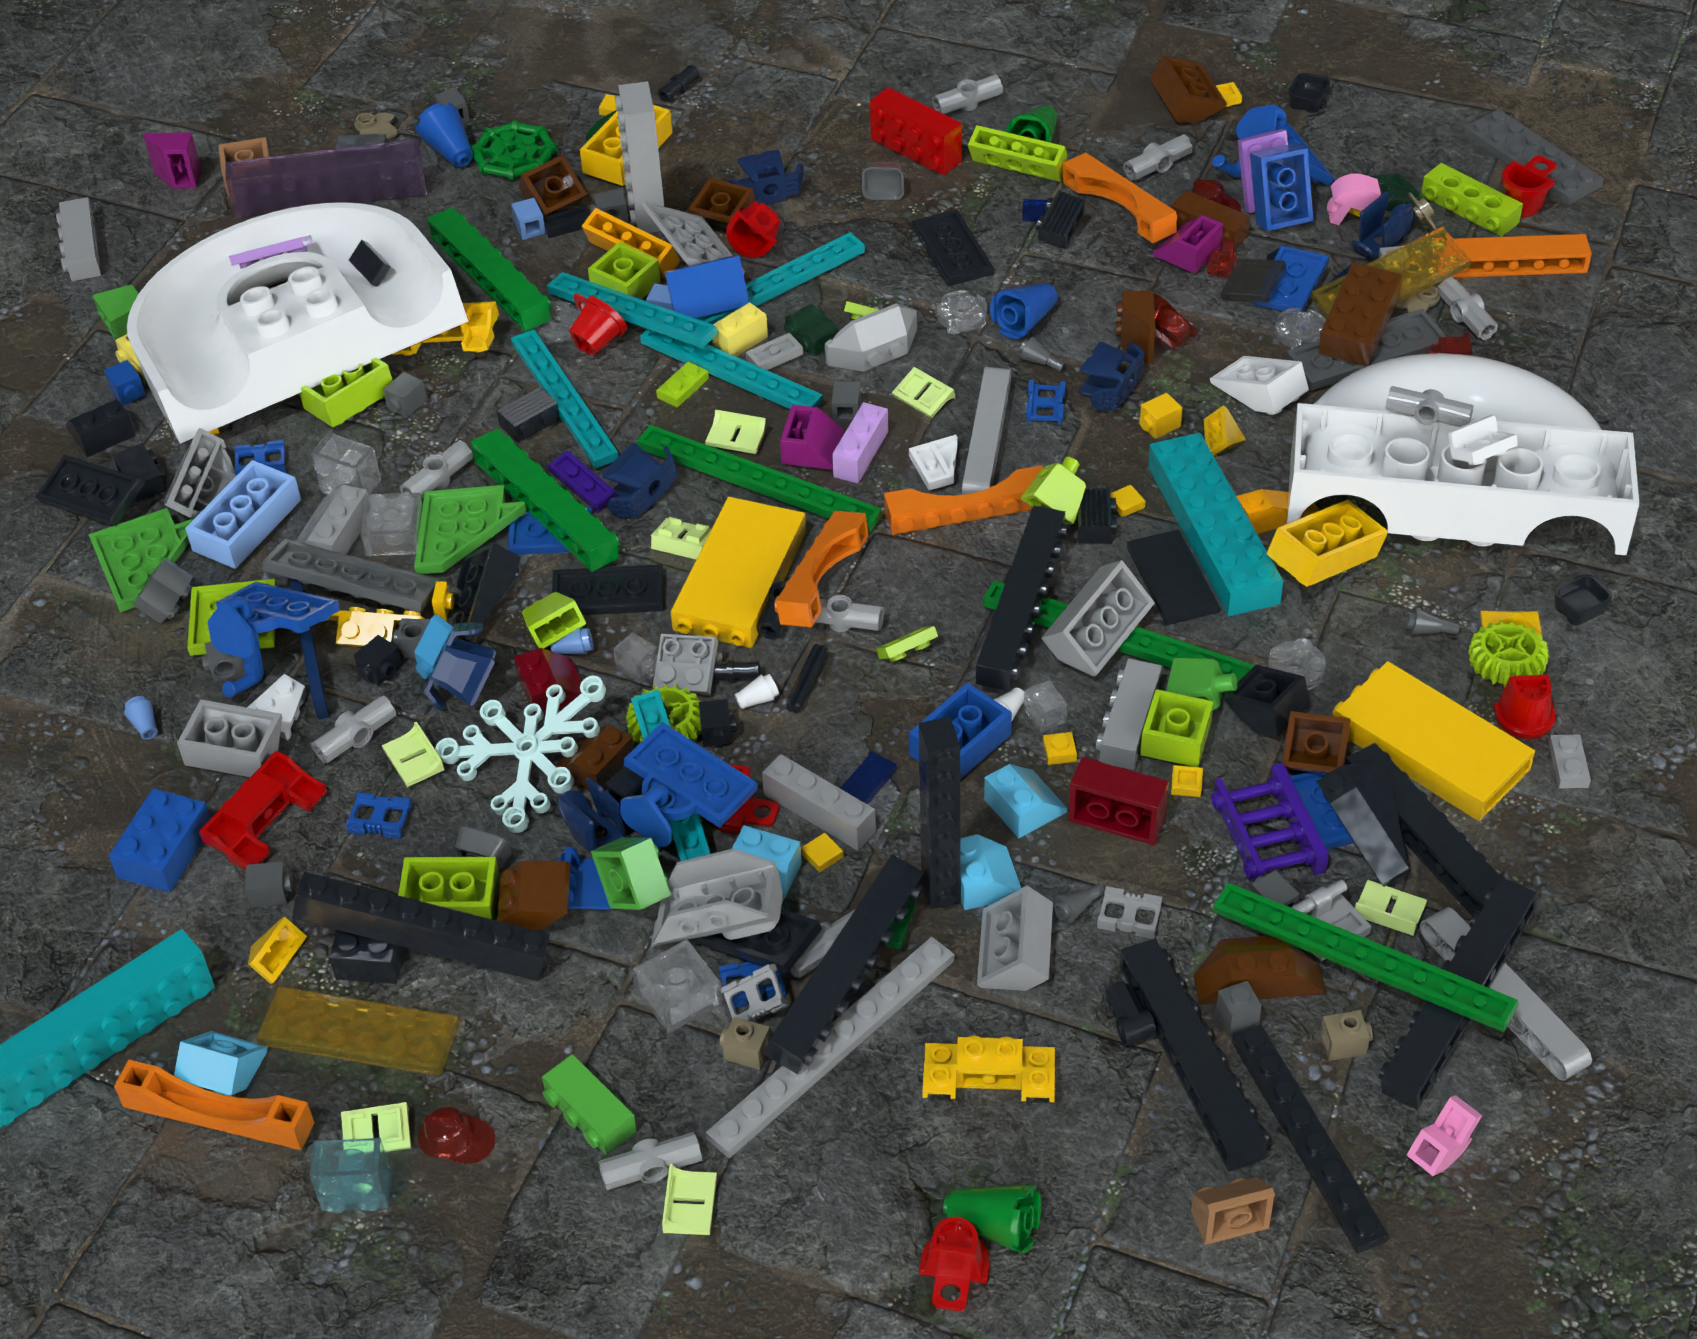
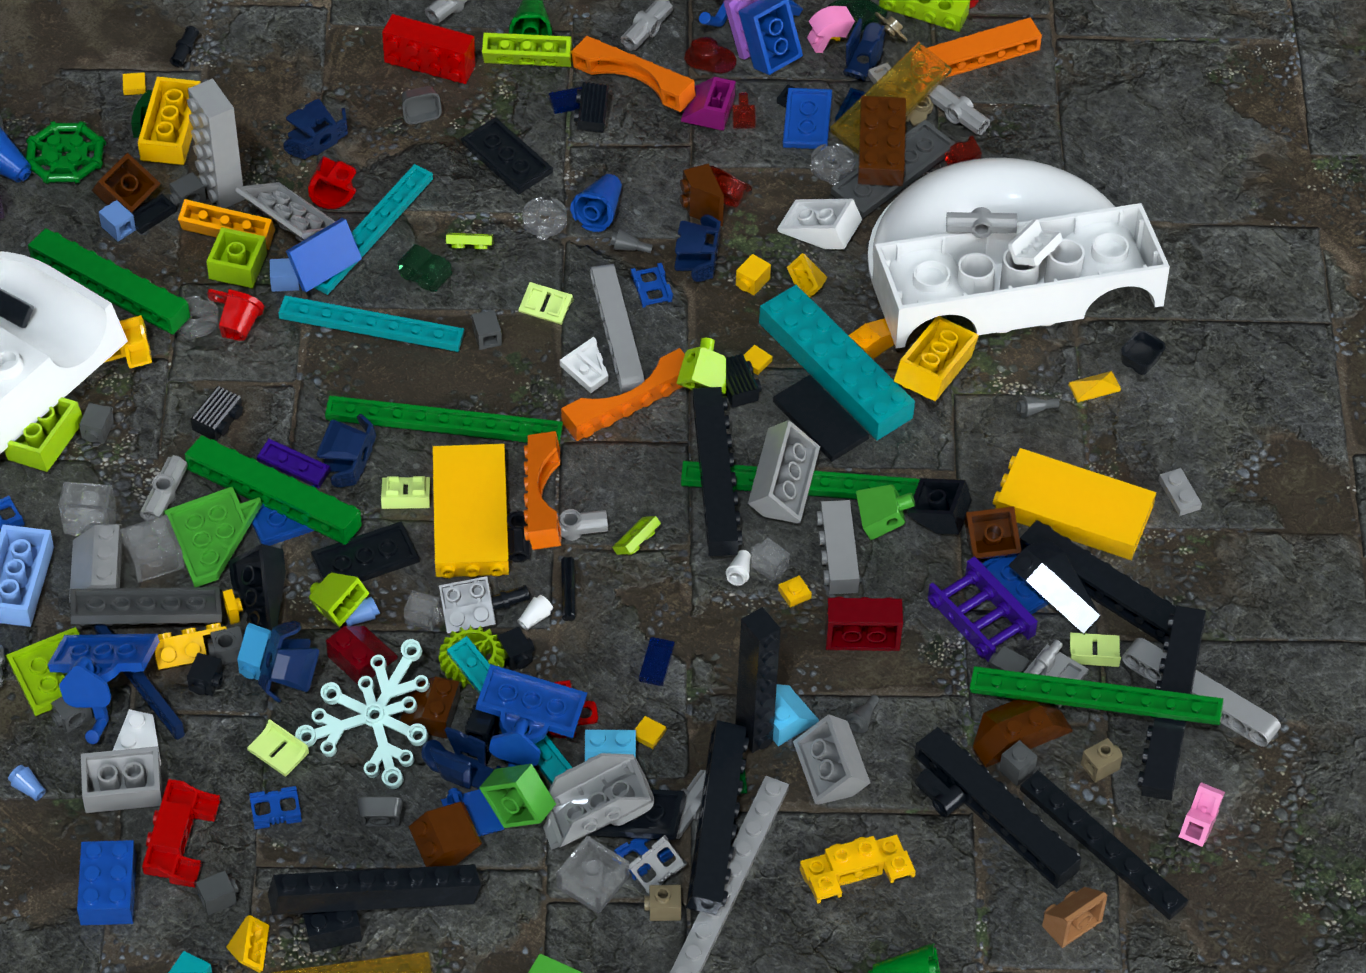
camera: 25 degrees left, 5 degrees up
(353, 729) = (216, 740): light grey piece -> none
(453, 883) = (374, 847): lime brick -> none
(570, 405) = (252, 397): teal plate -> none
(637, 310) = (263, 289): teal plate -> none
(682, 384) = (335, 348): lime plate -> none
(721, 200) = (291, 163): reddish brown slope -> none
(726, 425) = (392, 382): yellowish green piece -> none
(741, 330) = (363, 285): light yellow brick -> none
(775, 352) = (402, 297): light grey plate -> none
(809, 438) = (474, 373): magenta slope -> none
(819, 802) = (630, 691): light grey brick -> none
(860, 442) = (517, 365): lavender brick -> none
(873, 339) = (483, 267): light grey wedge -> none
(978, 723) = (716, 602): blue brick -> none
(1021, 799) = (795, 645): medium azure slope -> none
(1131, 905) = (904, 704): light grey piece -> none
(1176, 728) = (882, 549): lime brick -> none
(1186, 781) = (903, 589): yellow tile -> none
(1234, 222) = (703, 68): reddish brown brick -> none
(1253, 280) = (777, 127): clear smoke tile -> none
(1302, 653) = (949, 457): clear plate -> none
(1507, 652) = (1105, 415): lime gear -> none
(1526, 707) = (1133, 456): red container -> none

